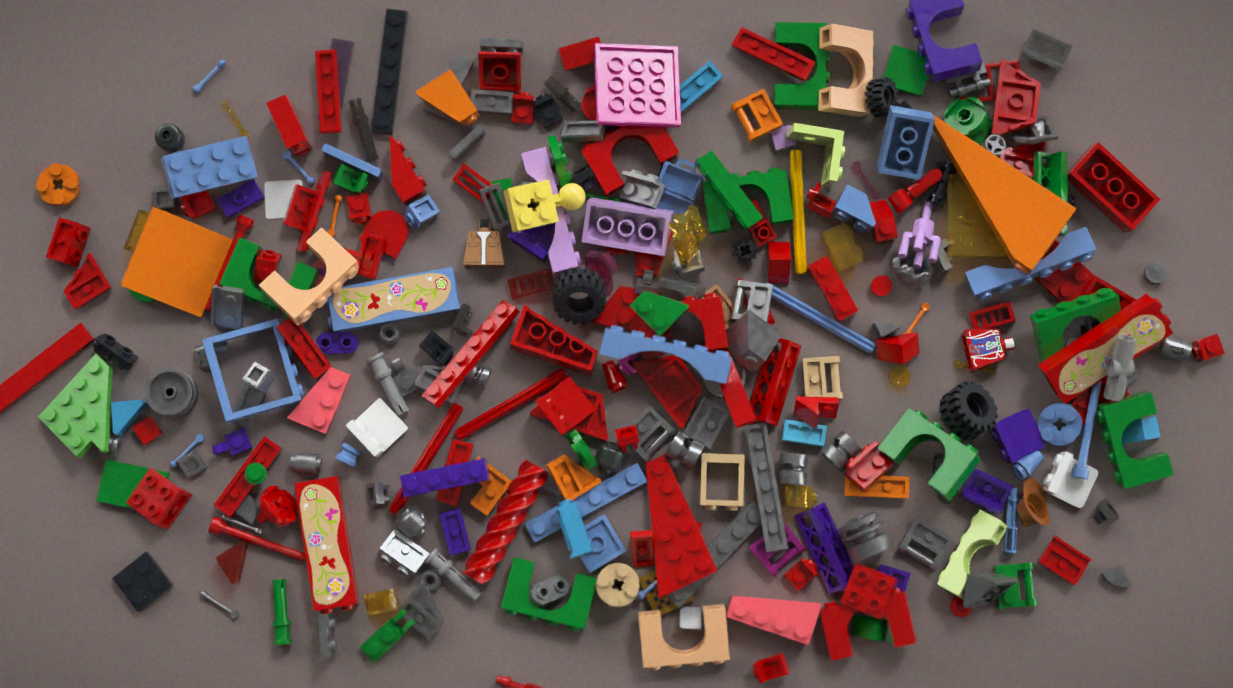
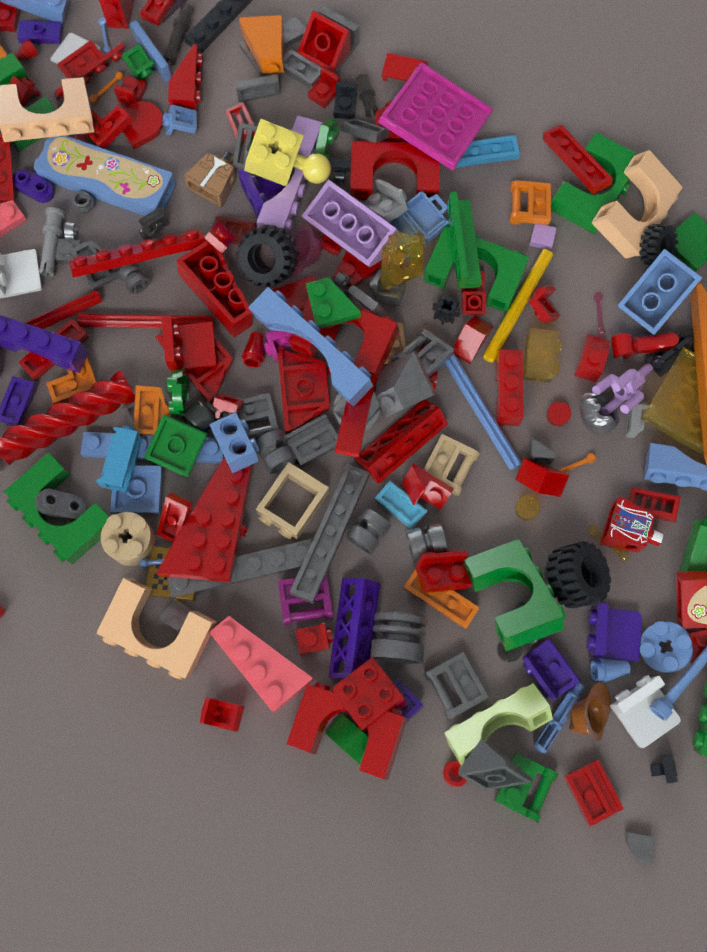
camera: 30 degrees right, 10 degrees down
(437, 348) = (113, 234): black bracket -> none
(529, 302) = (219, 237): none -> red bracket
(607, 492) = (176, 445): none -> green tile
(650, 467) = (234, 442): none -> medium blue brick
(800, 496) = (358, 561): clear yellow brick -> none
(822, 136) = (578, 246): yellowish green bracket -> none
(854, 209) = (574, 323): medium blue slope -> none

